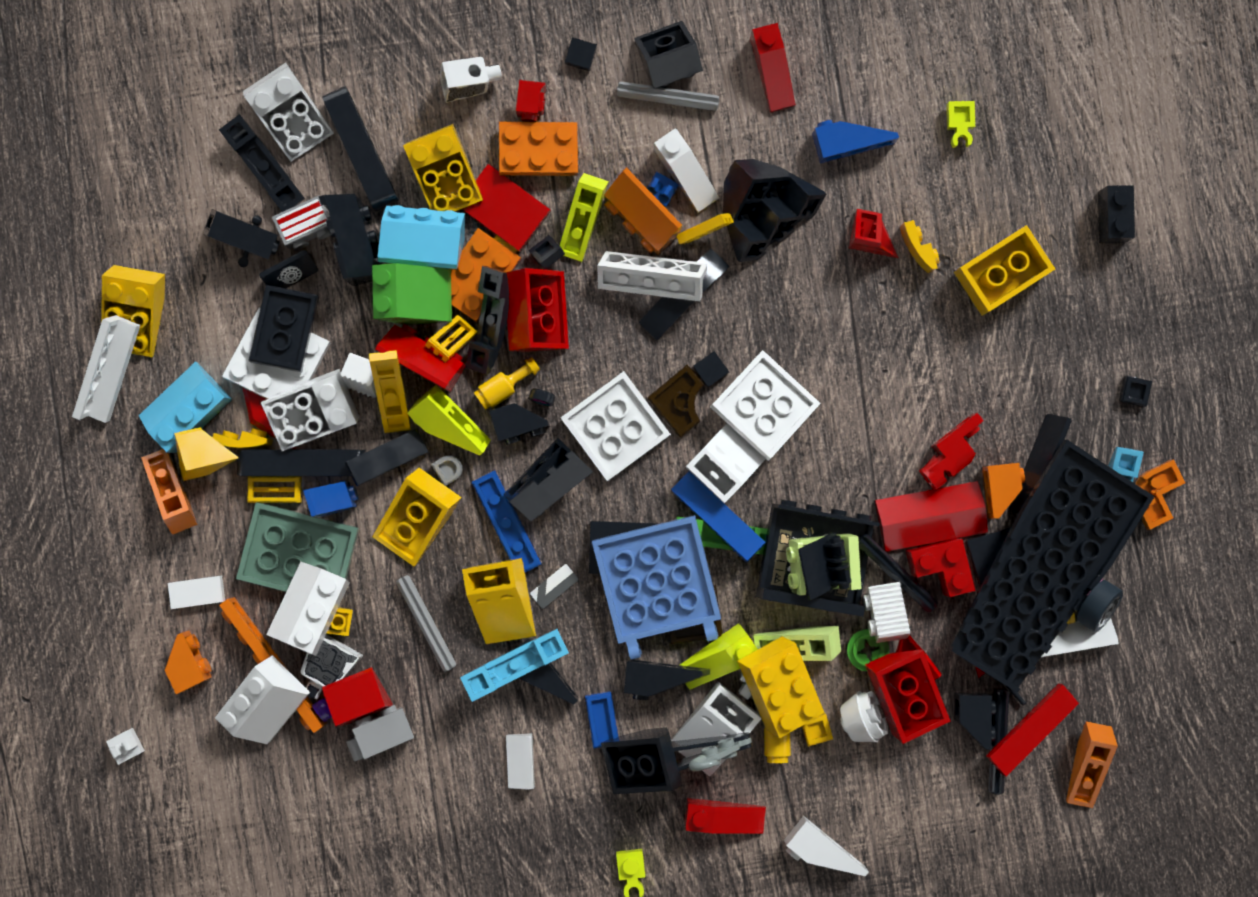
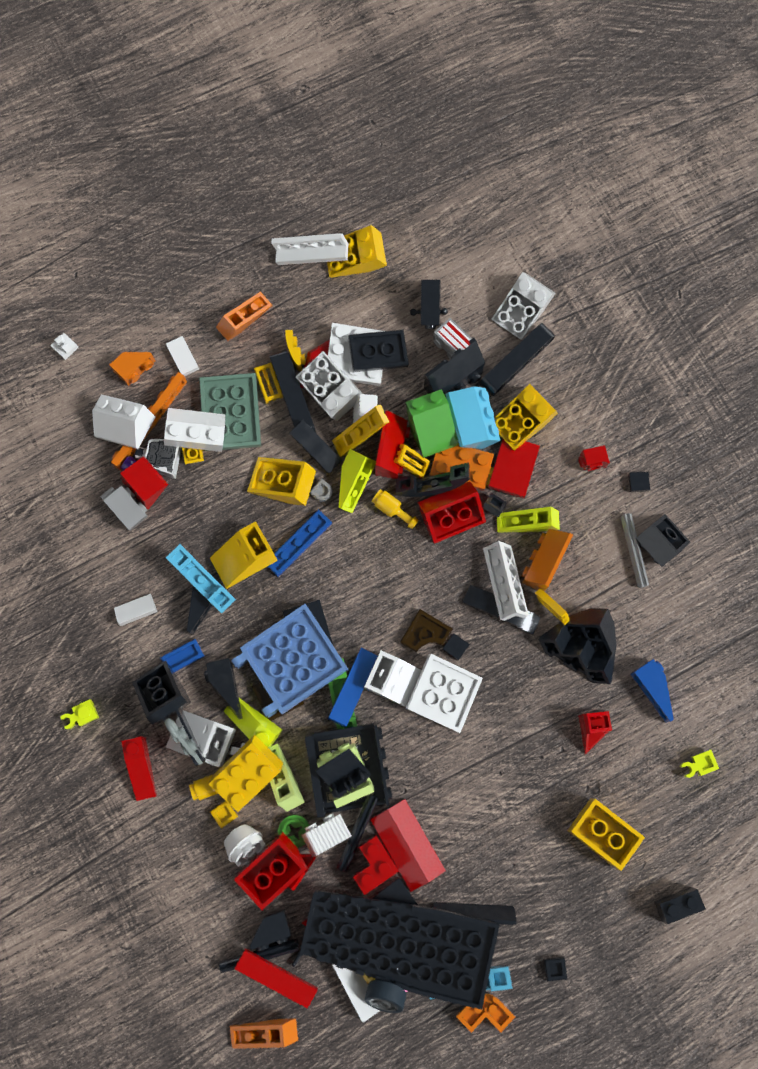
camera: 70 degrees right, 10 degrees down
(184, 406) = (301, 307): medium azure slope -> none
(200, 453) = (275, 326): yellow slope -> none
(262, 163) = (483, 300): black slope -> none
(290, 270) = (418, 342): black slope -> none
(331, 498) = (274, 418): blue slope -> none
(426, 623) = (210, 512): light grey axle -> none
(467, 78) = (592, 411): white torso -> none
(514, 421) = (370, 524): black slope -> none
(538, 148) = (563, 475): orange plate -> none
(542, 397) = (393, 536): black tile -> none
(547, 480) = (337, 558): black wedge -> none
(554, 586) = (265, 591): sticker -> none
(615, 426) = (391, 593): white plate -> none
(662, 188) = (568, 568): blue tile -> none
(685, 170) = (588, 580): white slope -> none
(773, 66) = (684, 615): red slope -> none
(818, 848) = (137, 847): white slope -> none
(923, 254) = (595, 770): yellow slope -> none
(952, 451) = (458, 844): red plate -> none
(1001, 487) = (448, 889): orange slope -> none

